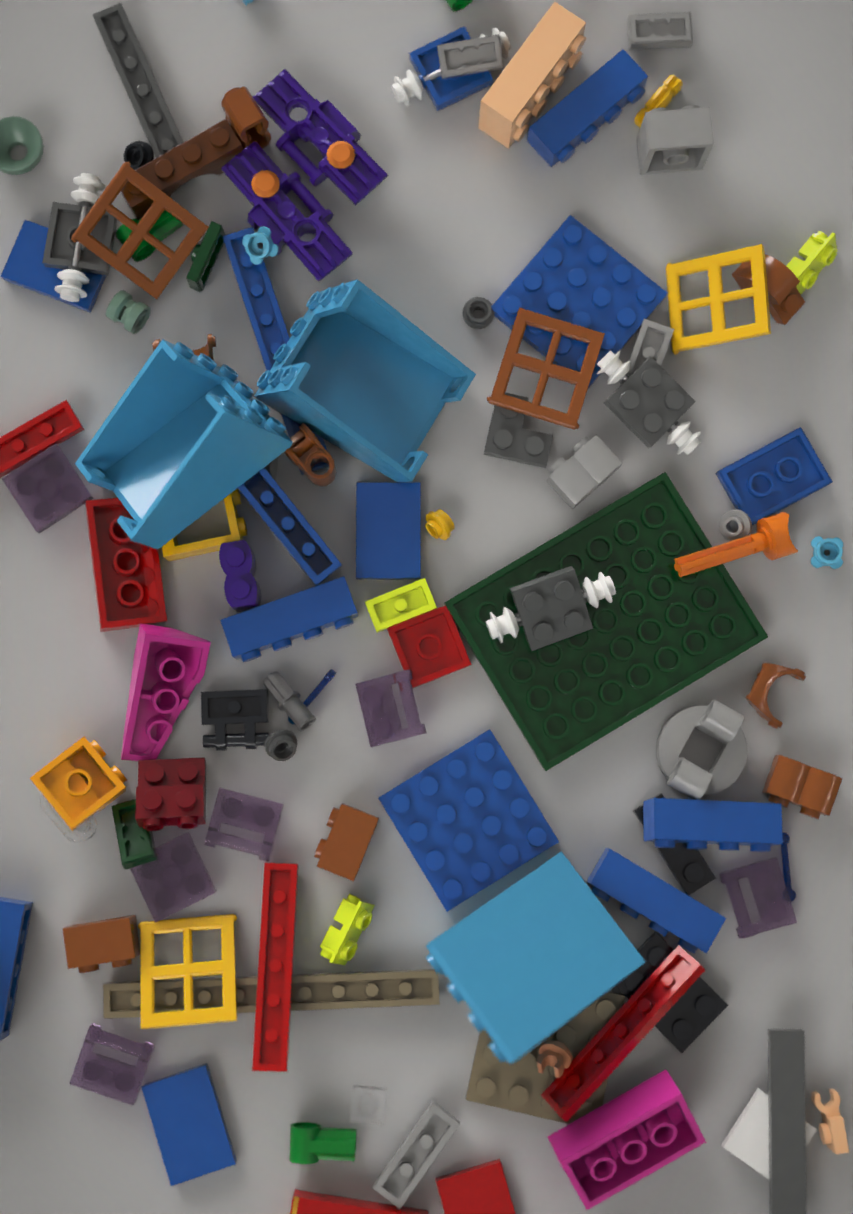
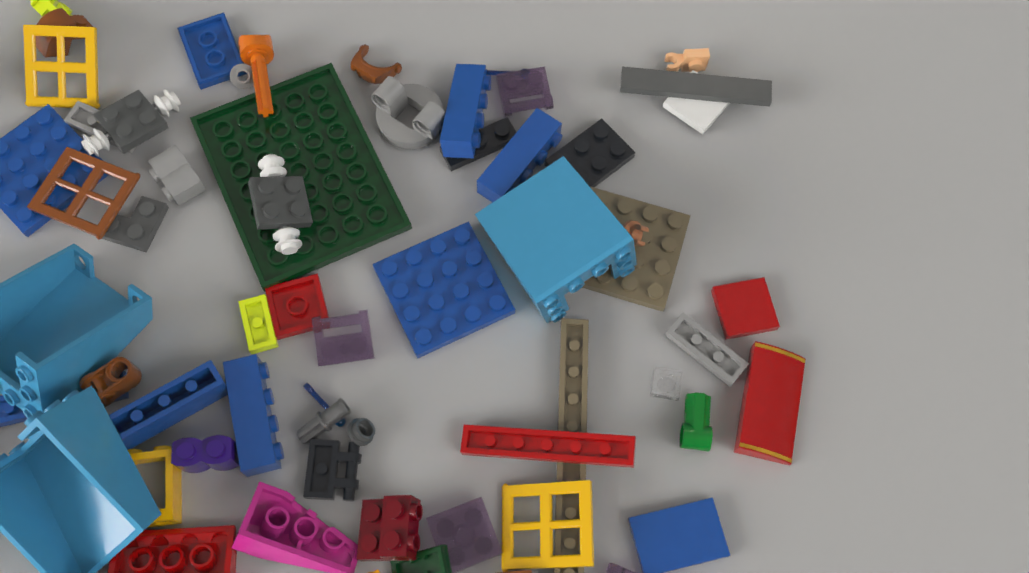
camera: 85 degrees left, 15 degrees down
(247, 813) = (416, 465): clear purple plate -> none
(341, 944) = (533, 394): neon yellow hinge -> none
(346, 842) = (449, 382): dark orange brick -> none
(388, 530) = (193, 330): blue tile -> none
(439, 524) = (196, 287): yellow plate -> none
(482, 304) = (21, 237): dark grey plate -> none
(622, 1033) = (618, 184): red plate -> none
(626, 1139) = (696, 190): dark pink brick -> none
(802, 786) = (444, 53): dark orange brick -> none
(833, 545) = (276, 16): medium azure plate -> none

